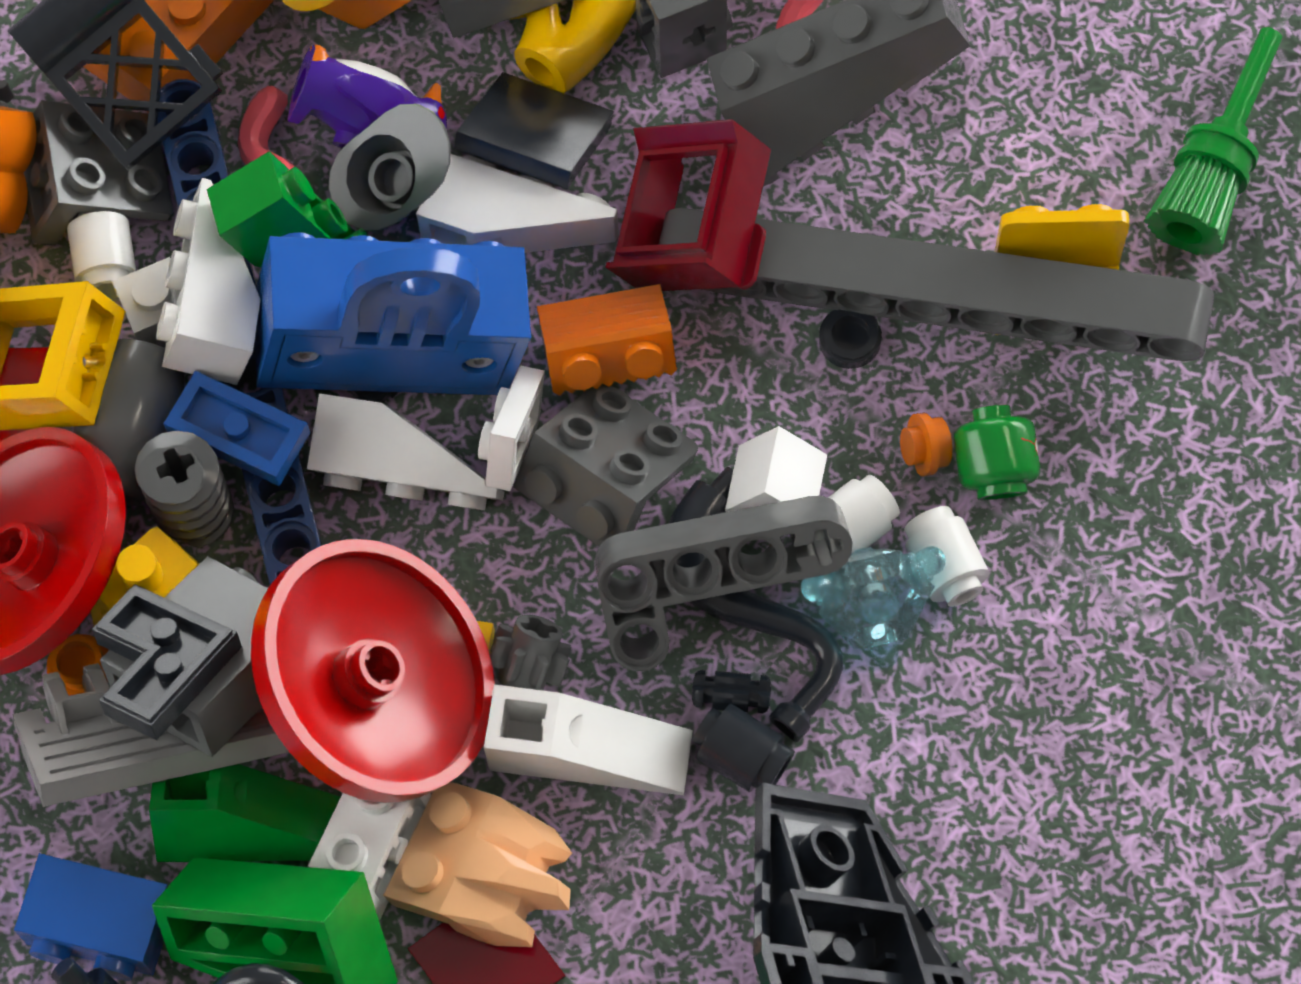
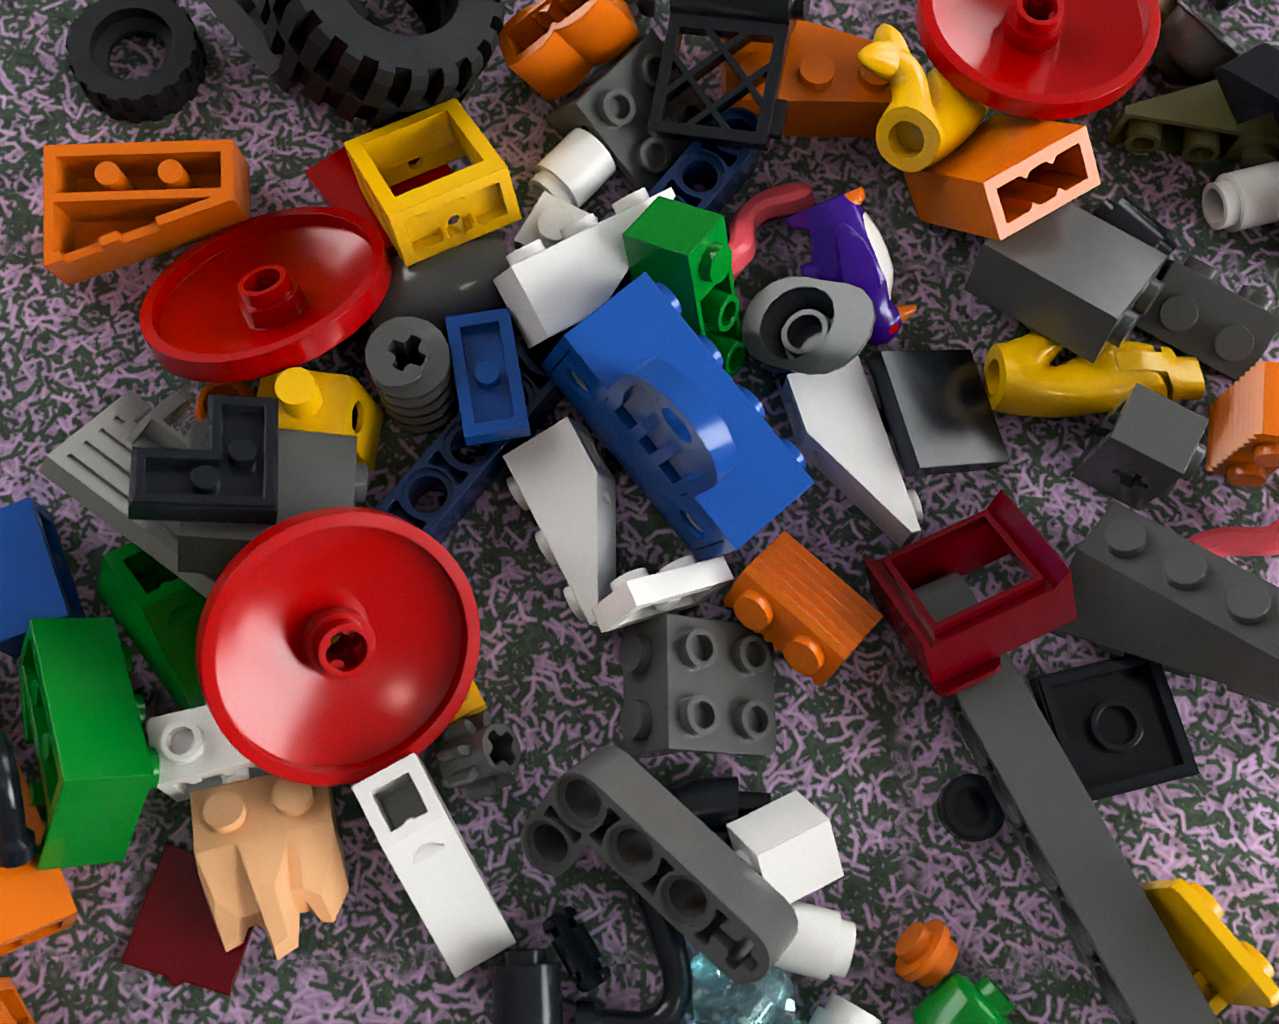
camera: 45 degrees right, 5 degrees up
(871, 186) = (1116, 724): none -> black tile

